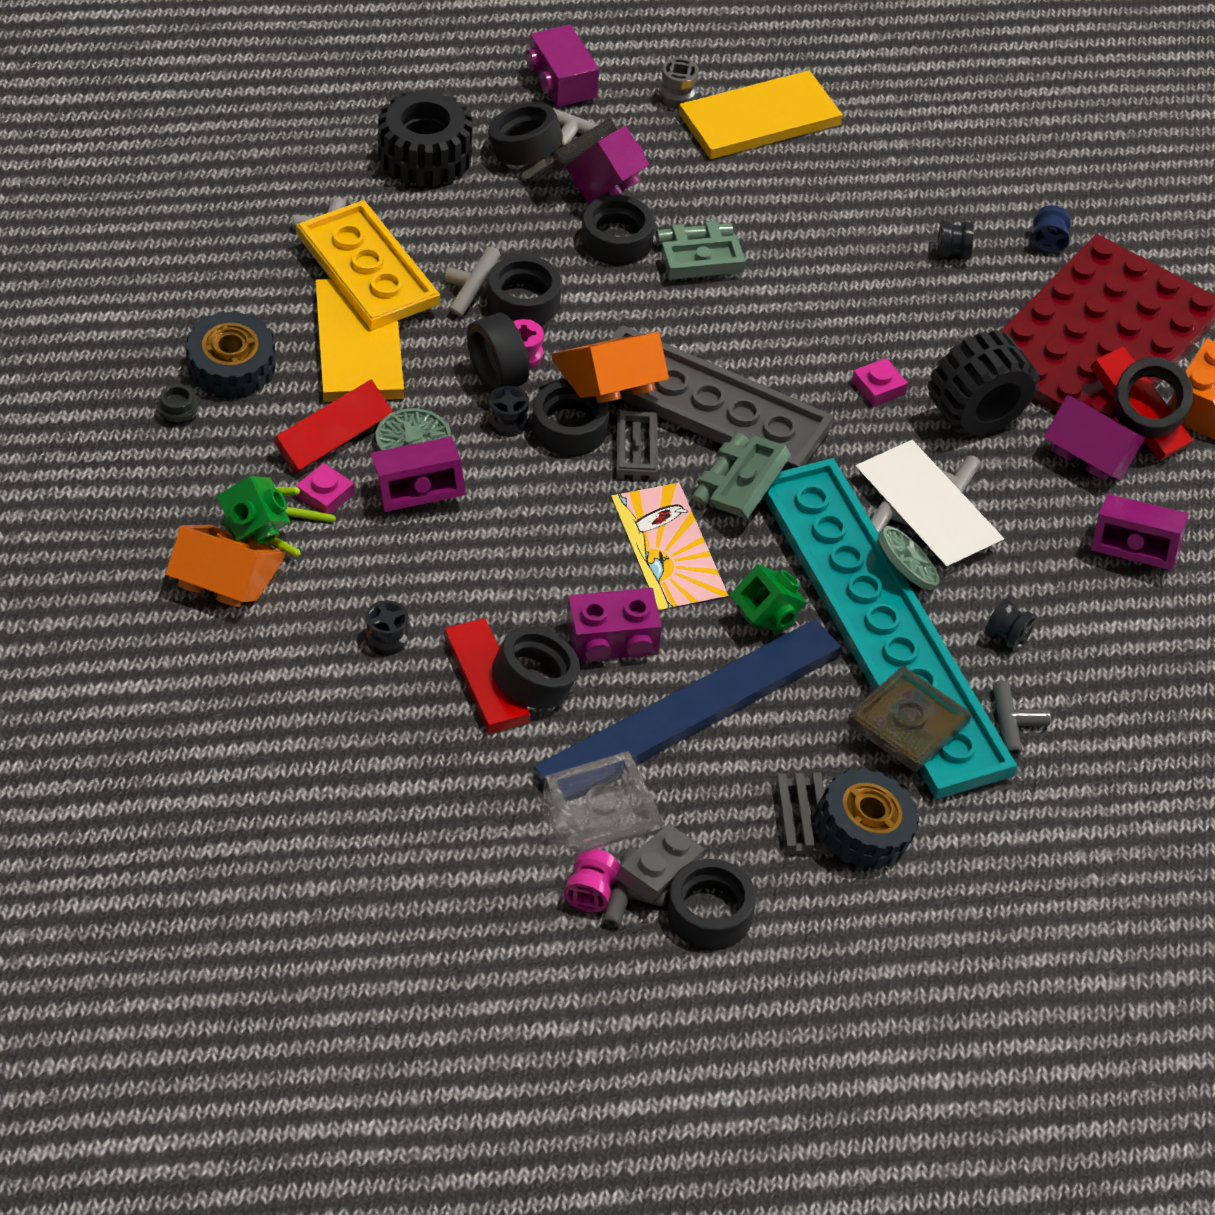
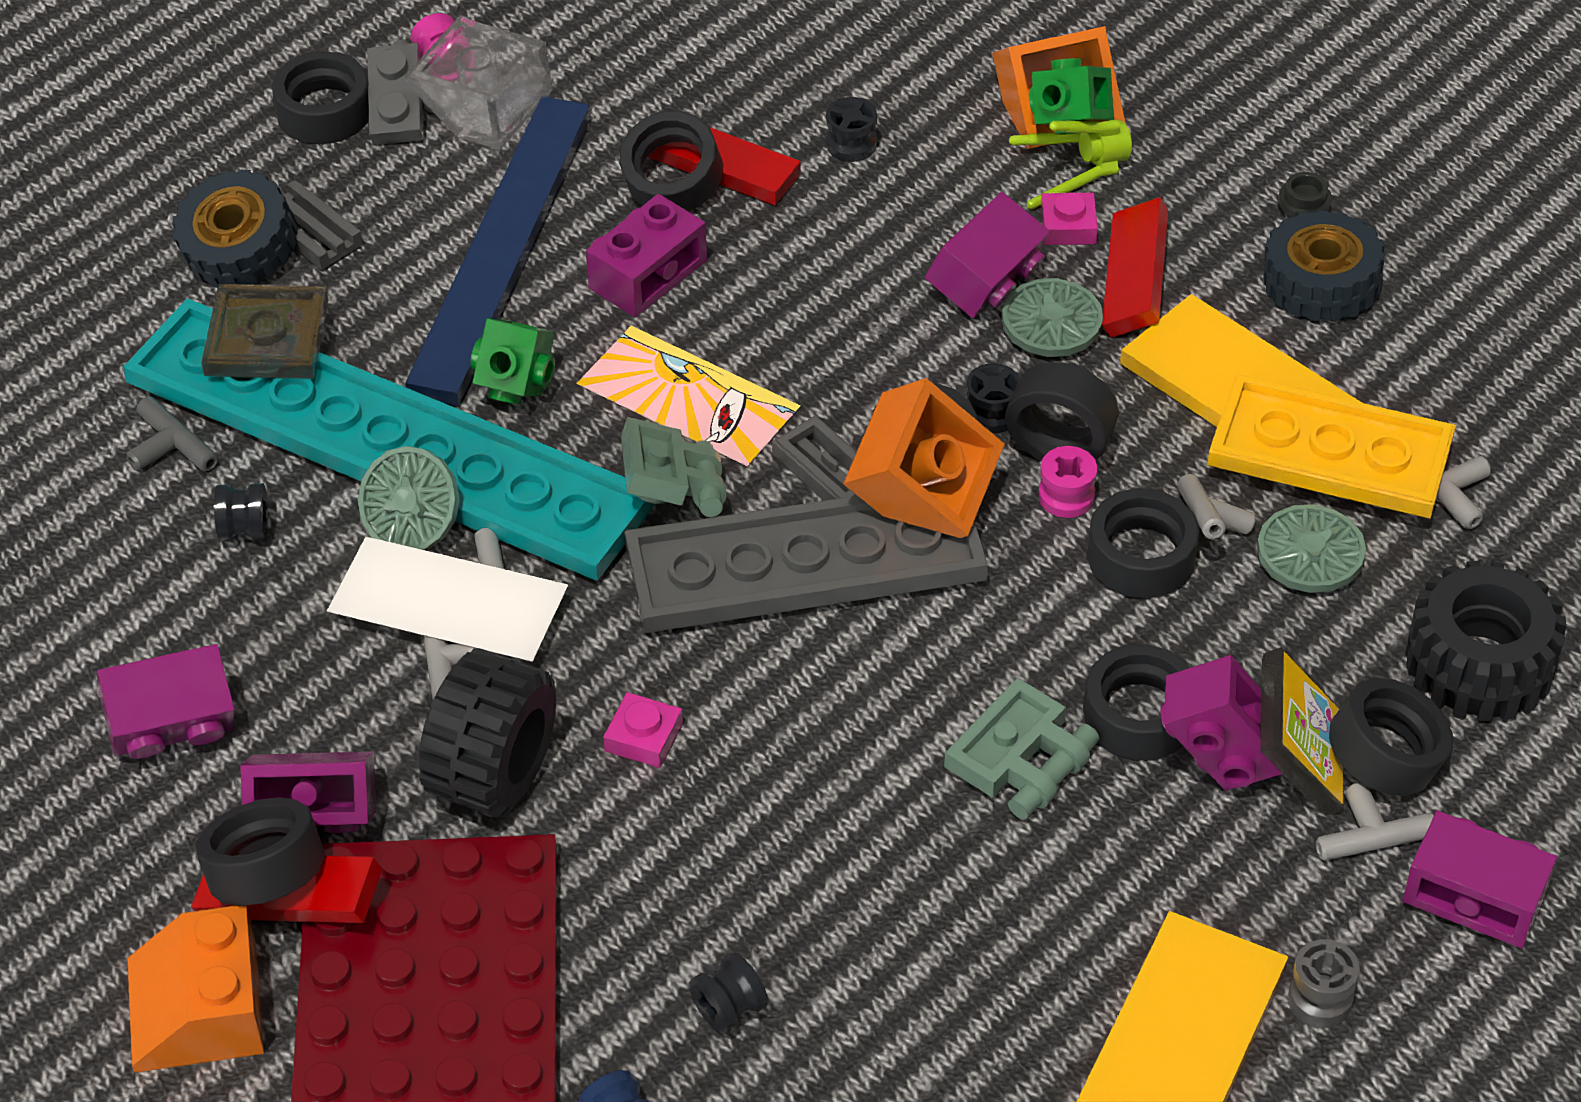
camera: 145 degrees right, 0 degrees up
(438, 241) = (1311, 548): none -> sand green wheel

